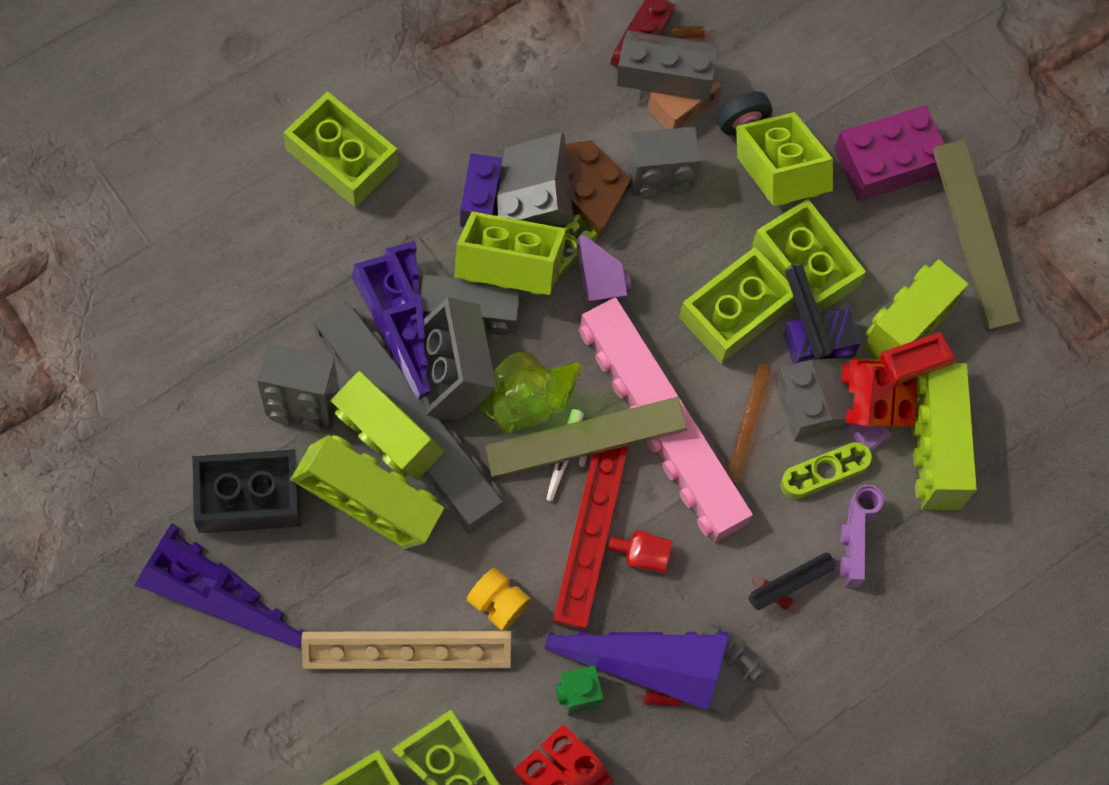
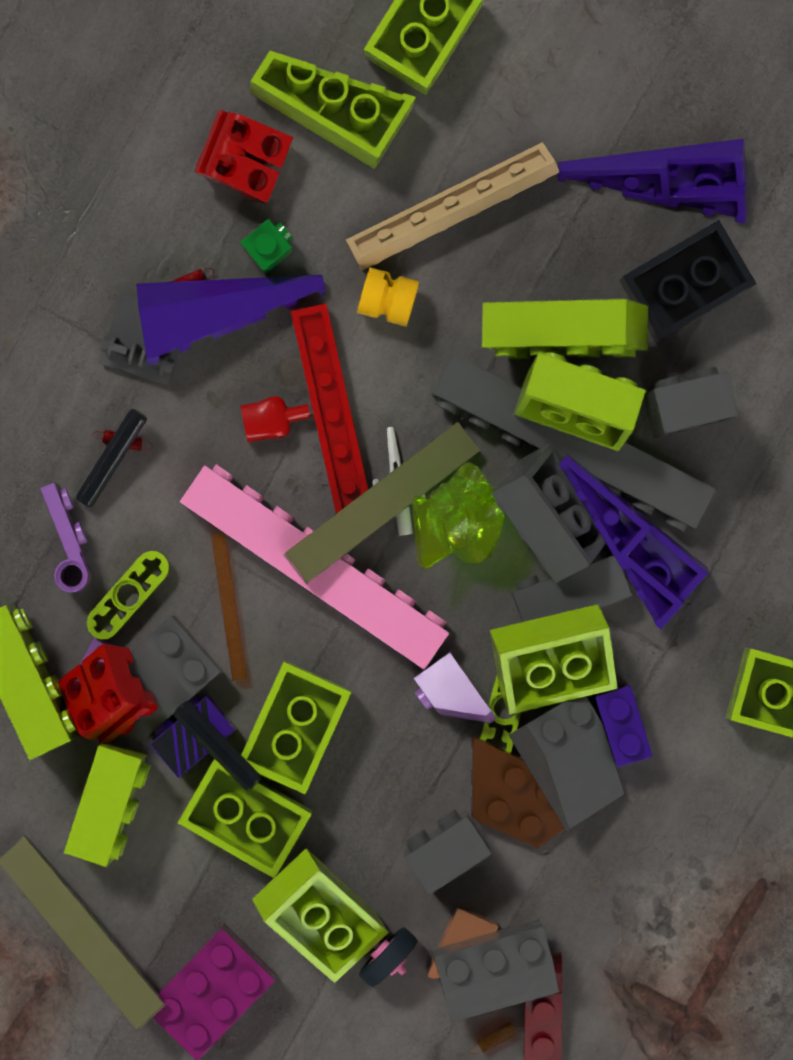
camera: 155 degrees right, 20 degrees up
(917, 358) = (82, 737): red tile -> none

